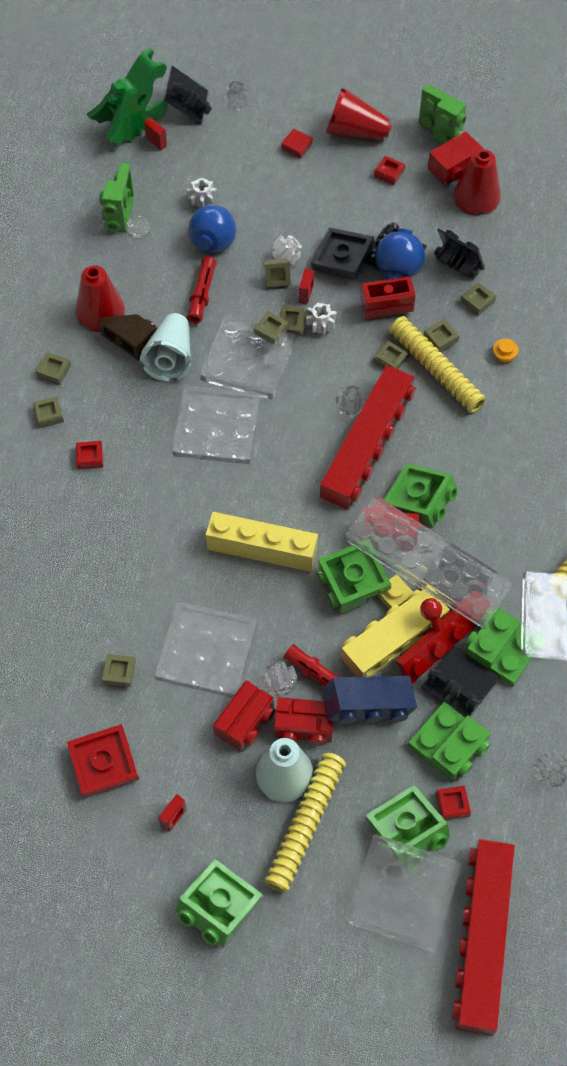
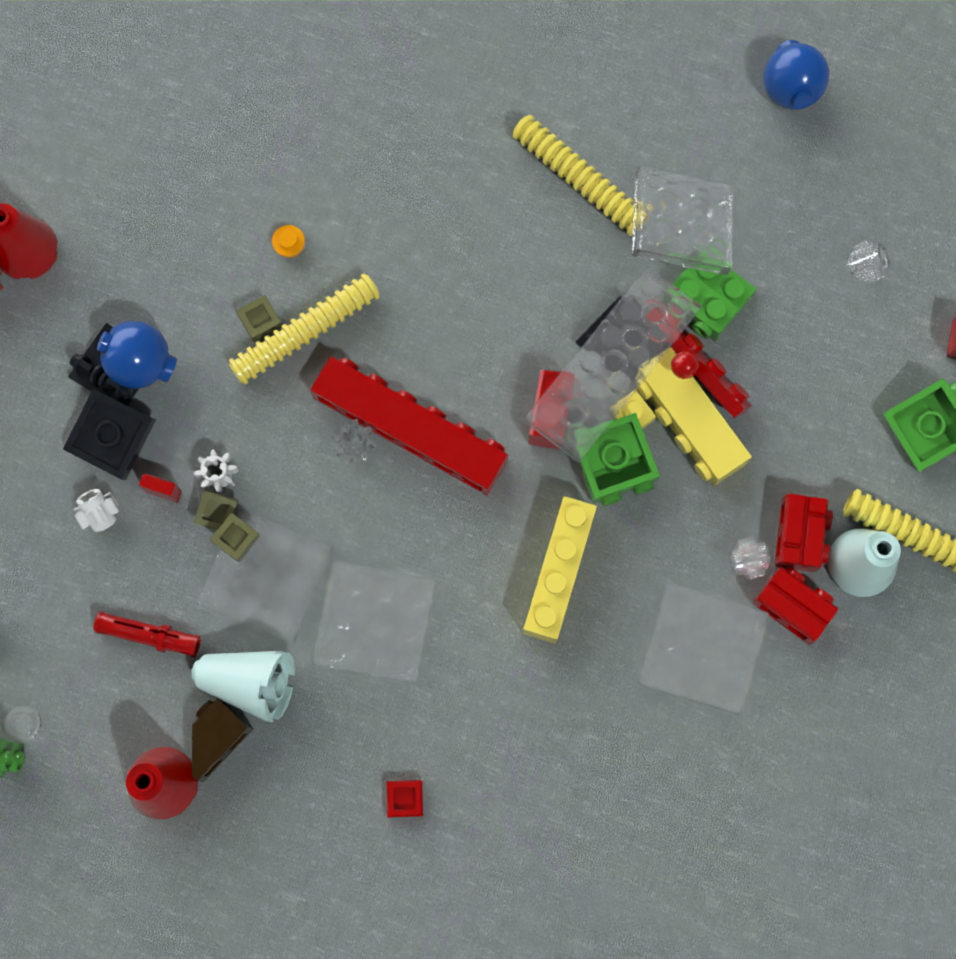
camera: 85 degrees left, 15 degrees up
(48, 412) = (331, 858): olive tile -> none
(53, 368) = (258, 850): olive tile -> none
(102, 761) = (849, 782): red plate -> none
(118, 670) = (729, 760): olive plate -> none
(172, 813) = (917, 696): red tile -> none
(212, 229) = (46, 613): blue brick -> none
(277, 272) = (133, 526): olive plate -> none
(309, 666) = (732, 519): red pin -> none
(369, 699) = (787, 452): dark blue brick -> none
(387, 297) = (197, 379): red brick -> none
(390, 355) = (283, 387): olive tile -> none
(423, 493) = (501, 367): bright green plate -> none
(450, 742) = (827, 368): bright green plate -> none
(453, 803) = (898, 374): red tile -> none
(454, 248) = (139, 264): black hinge -> none
(460, 682) = (753, 349): black hinge -> none
(478, 298) = (201, 266): olive tile -> none

